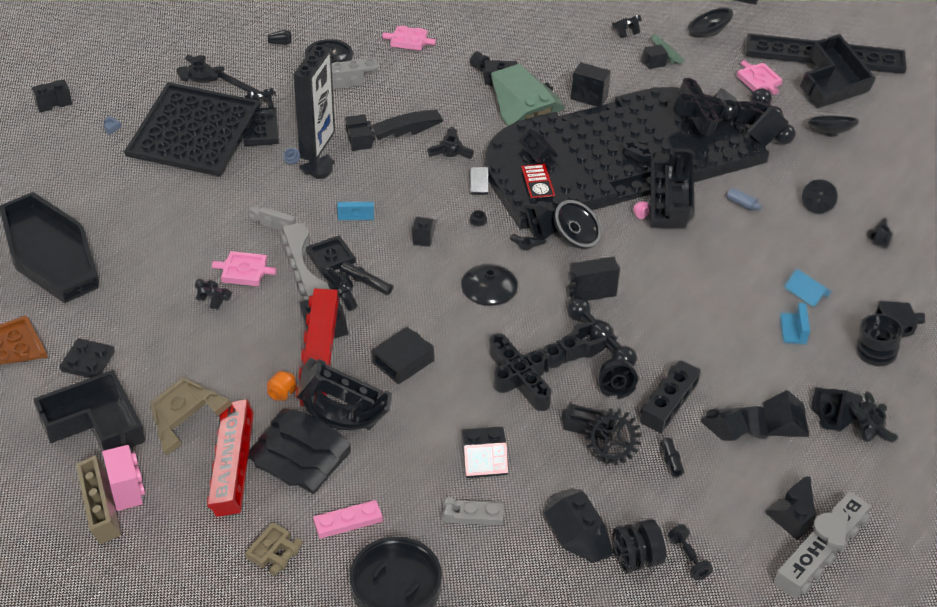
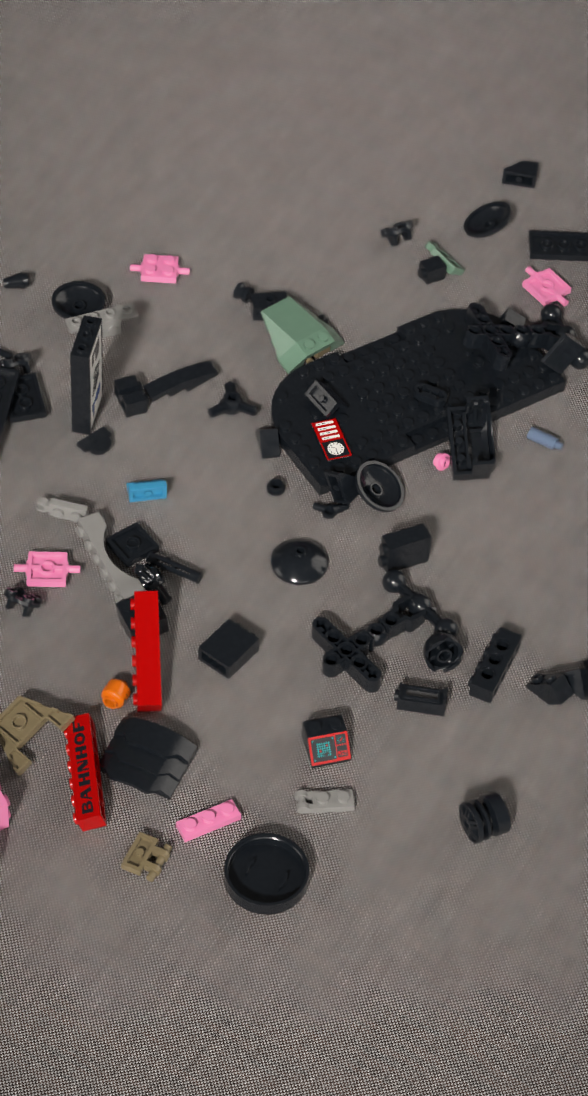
camera: 10 degrees left, 5 degrees up
(291, 156) = (62, 428): sand blue plate -> none
(367, 400) = (198, 697): black piece -> none
(423, 231) = (222, 508): black slope -> none
(578, 525) = (425, 803): black wedge -> none
(590, 84) = (369, 315): black brick -> none
(621, 440) = (439, 710): black gear -> none
(672, 457) = (504, 727): black pin -> none
(701, 569) = (519, 802): black wheel -> none

